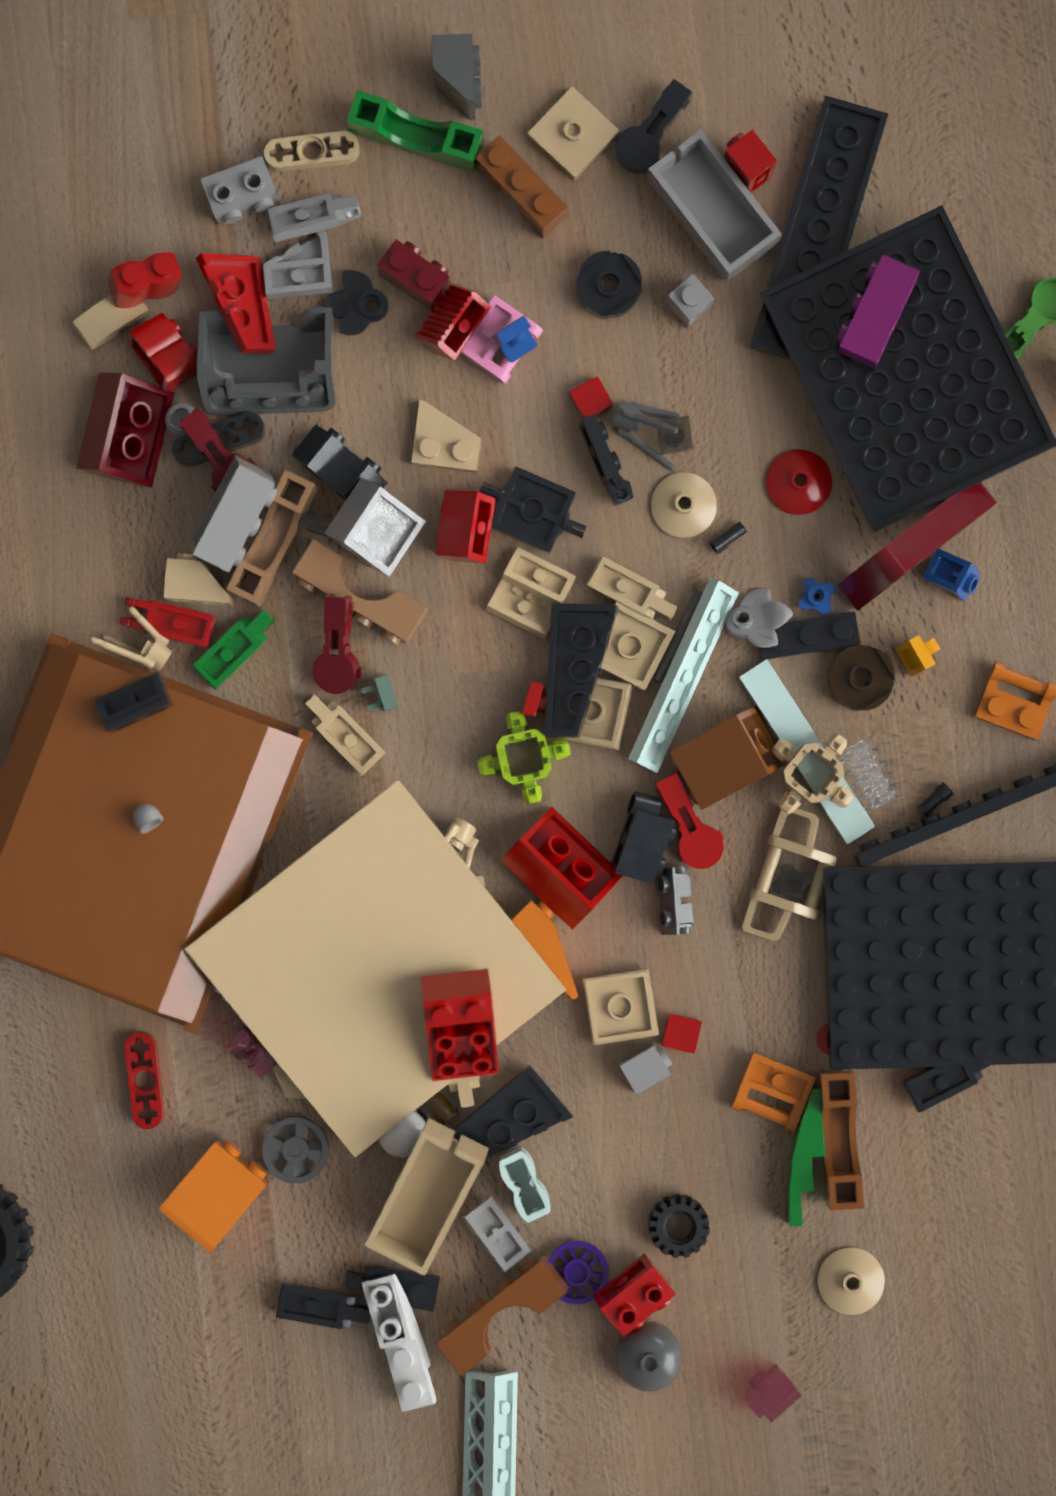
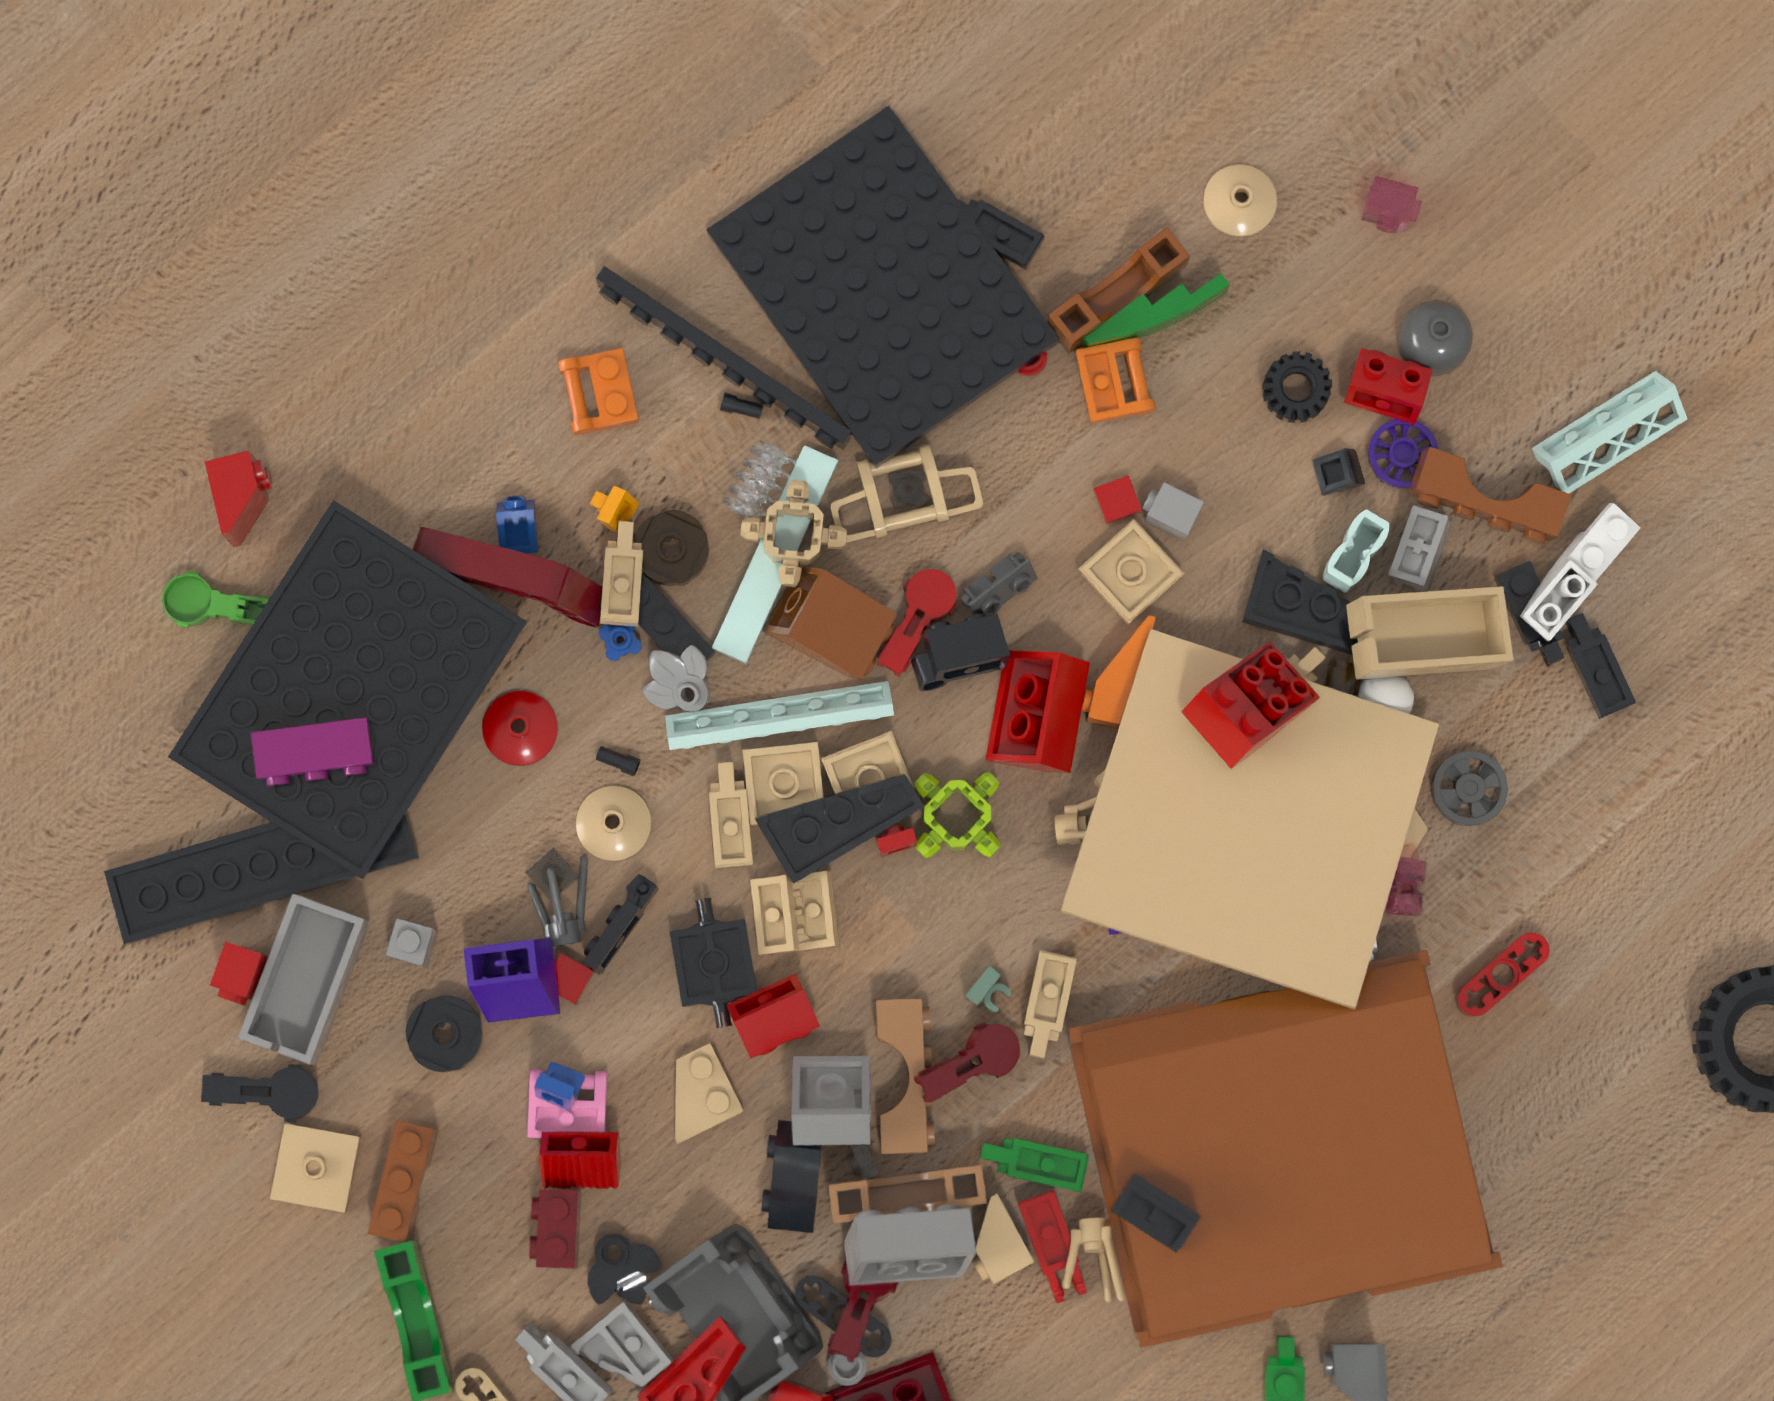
camera: 130 degrees left, 5 degrees down
(147, 818) = (1256, 1126): light grey hinge -> none
(215, 1194) = (1562, 833): orange slope -> none
(454, 70) = (331, 1320): dark grey slope -> none
(595, 1214) = (1338, 471): none -> black slope
(616, 356) = (513, 979): none -> dark purple slope
(677, 637) = (737, 746): dark grey bar -> none
(860, 623) = (622, 579): none -> tan hinge

